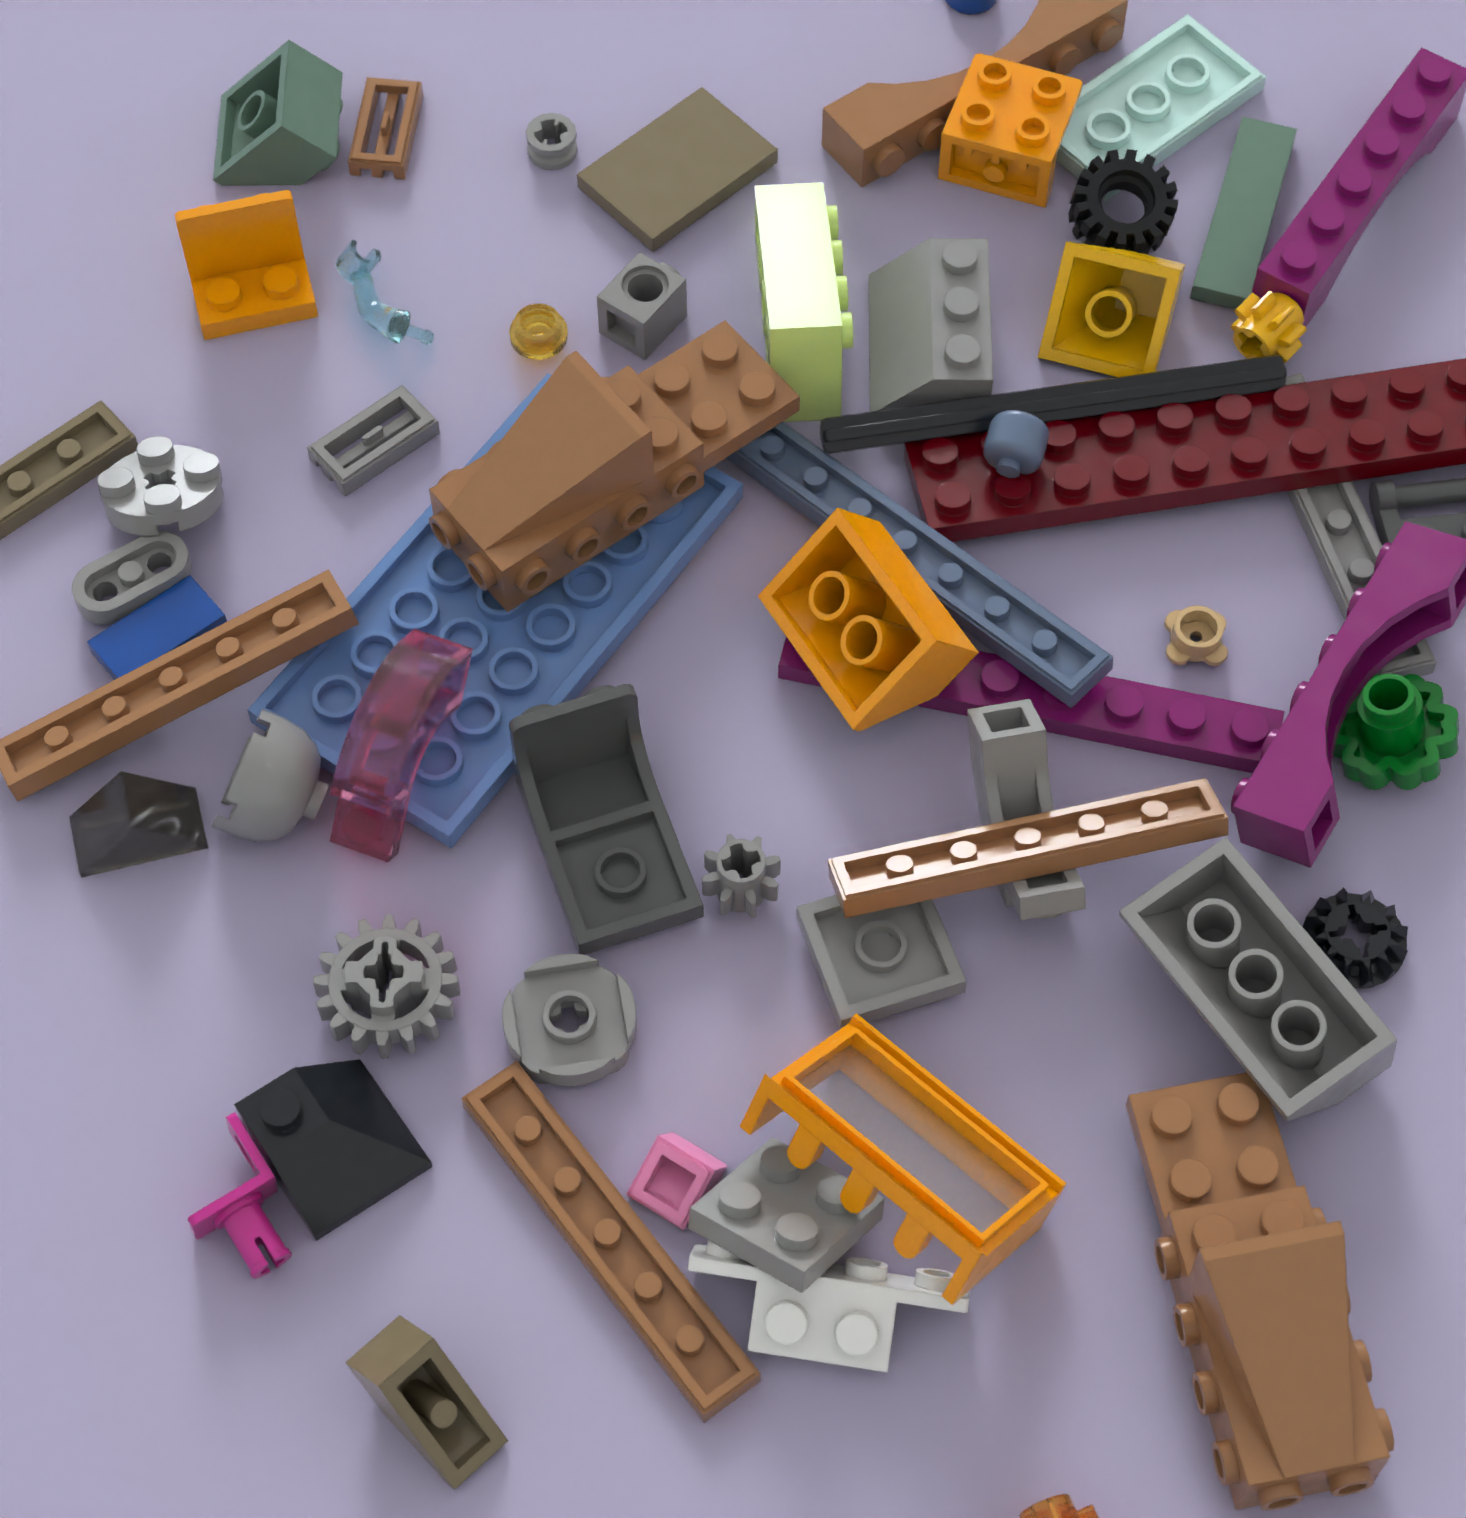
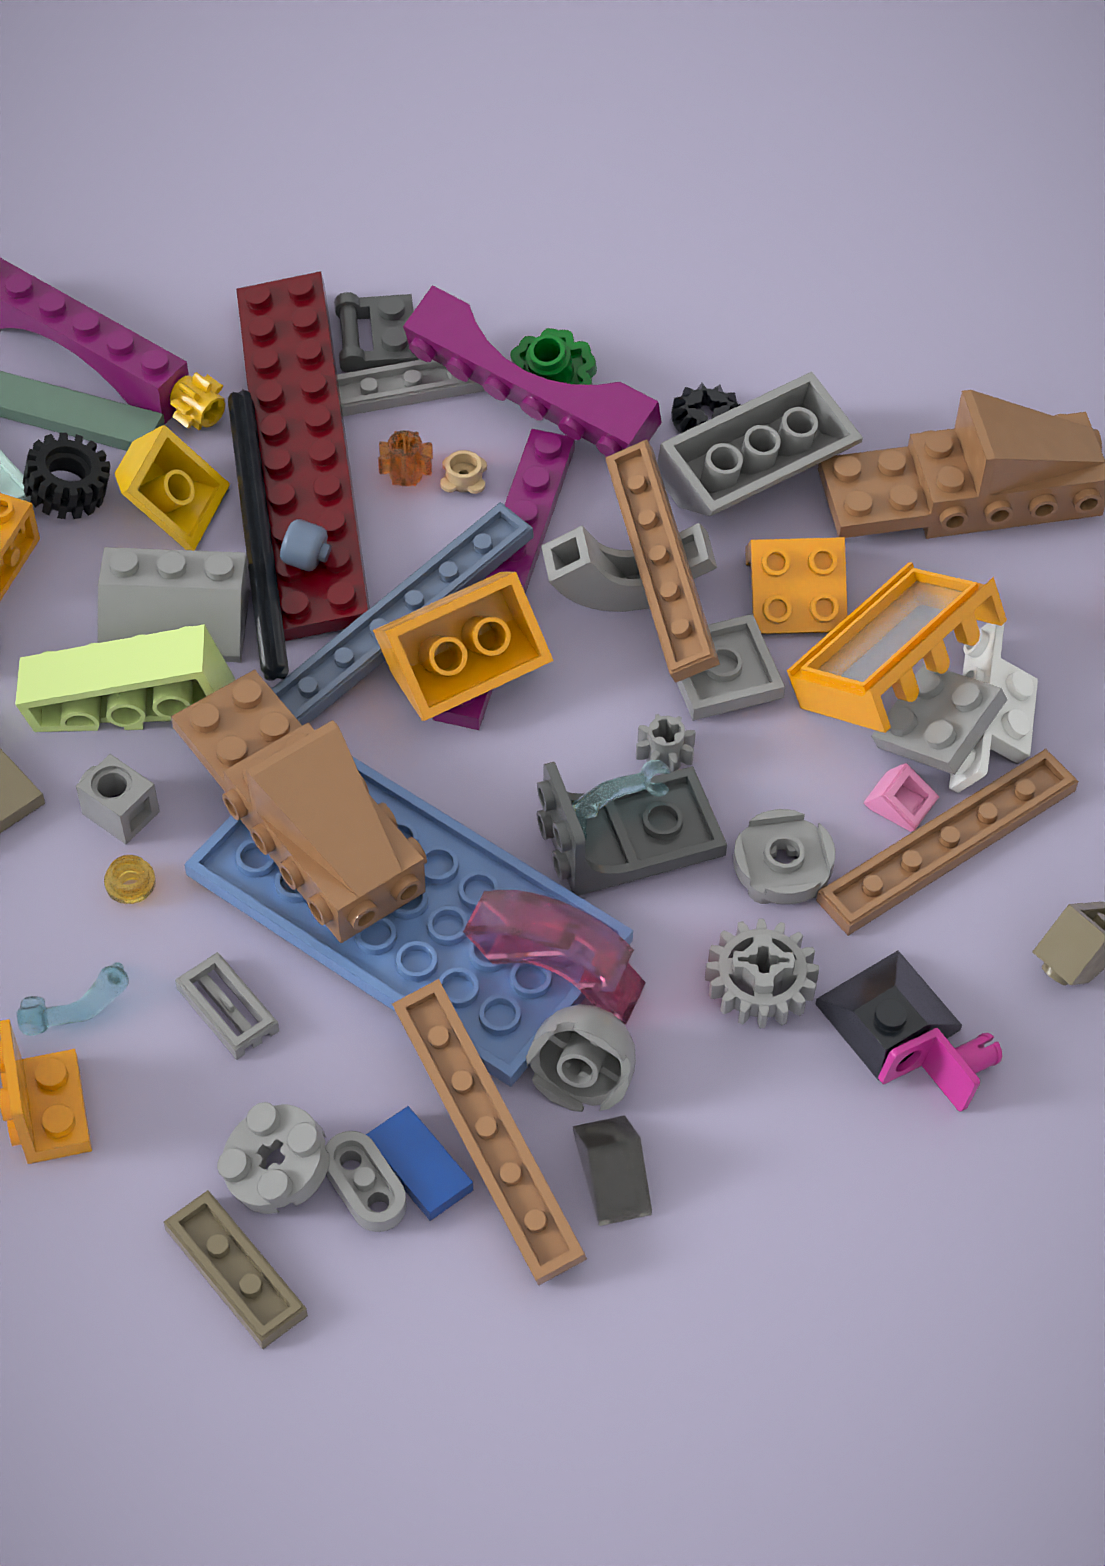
camera: 90 degrees left, 5 degrees down
(658, 840) = (592, 801): none -> clear light blue piece
(1037, 1042) = (798, 584): none -> light orange bracket
(1204, 562) = (405, 458): none -> clear orange gear

